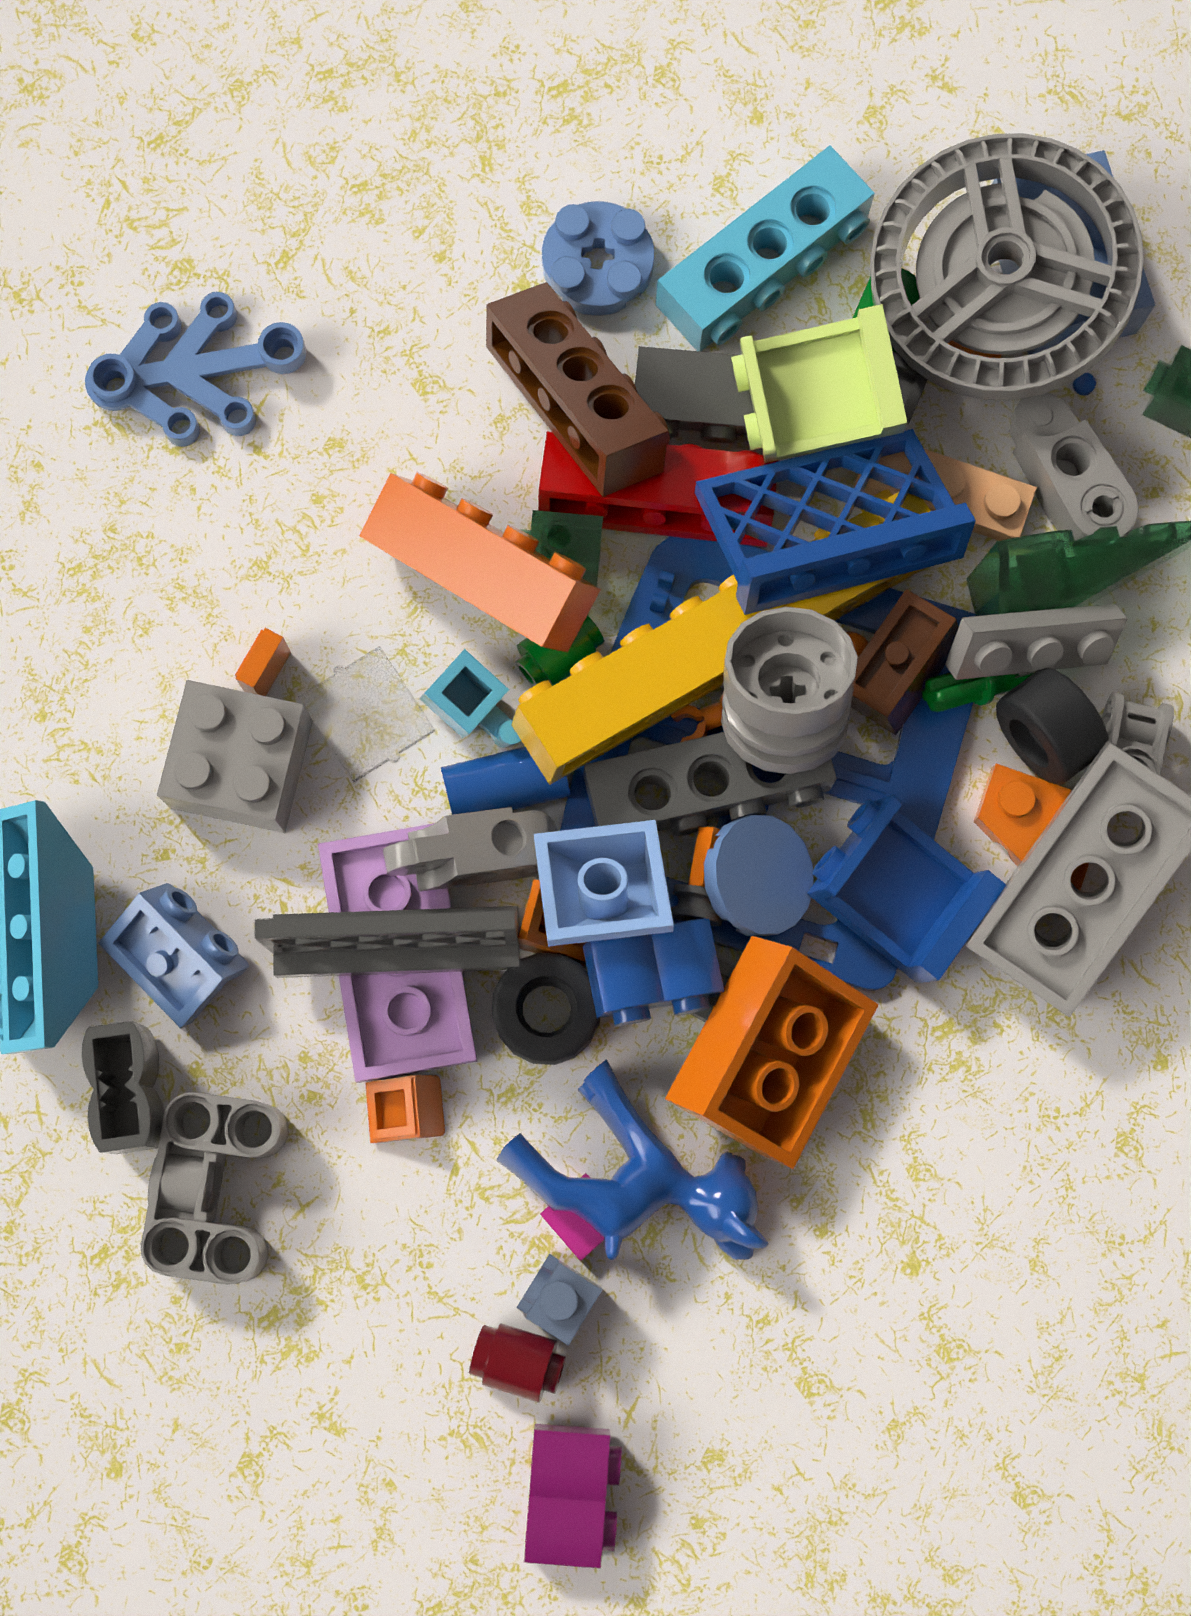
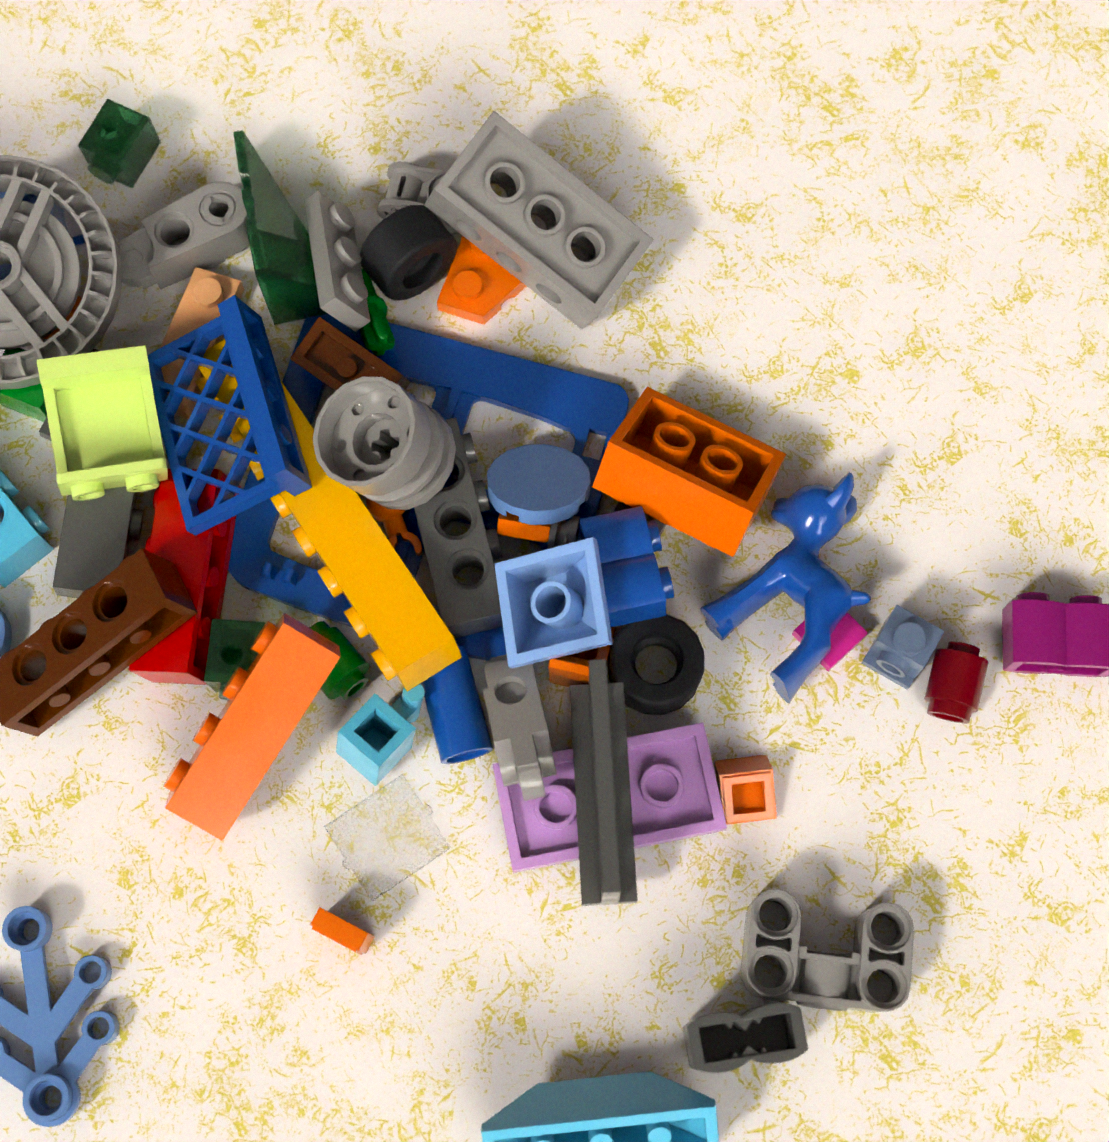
camera: 85 degrees left, 5 degrees down
(173, 952) = (615, 1003): medium blue bracket -> none
(235, 756) = (430, 950): light grey brick -> none
(902, 891) = (549, 370): blue panel -> none

